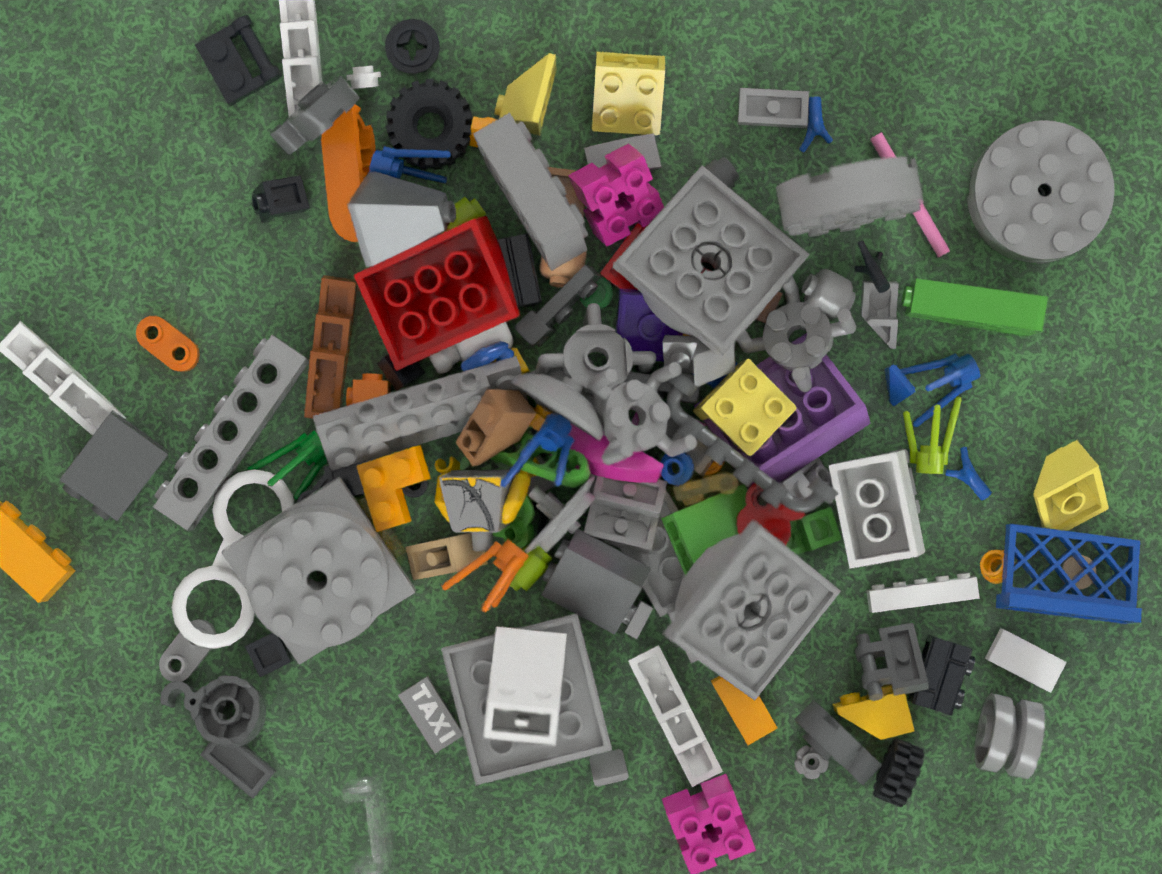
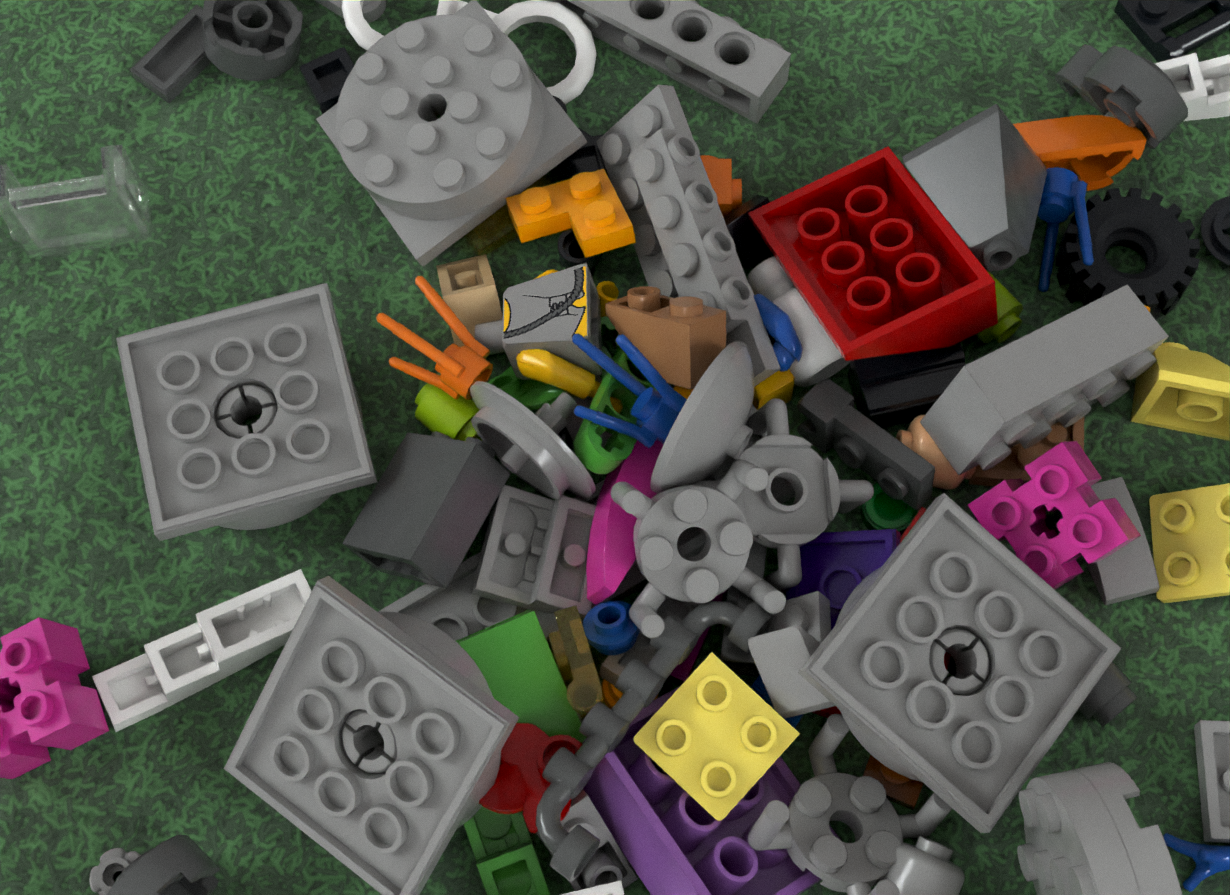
camera: 90 degrees right, 20 degrees down
(280, 198) = (991, 68): black bracket -> none
(309, 451) = (617, 93): green plant -> none
(330, 345) = (785, 142): dark orange slope -> none
(363, 77) = (1184, 167): white plate -> none
(431, 714) = (242, 283): light grey tile -> none
(525, 685) = (255, 388): white slope -> none
(608, 767) = (132, 548): light grey slope -> none
(637, 618) = (367, 580): light grey plate -> none
(748, 715) = (197, 771): light orange slope -> none

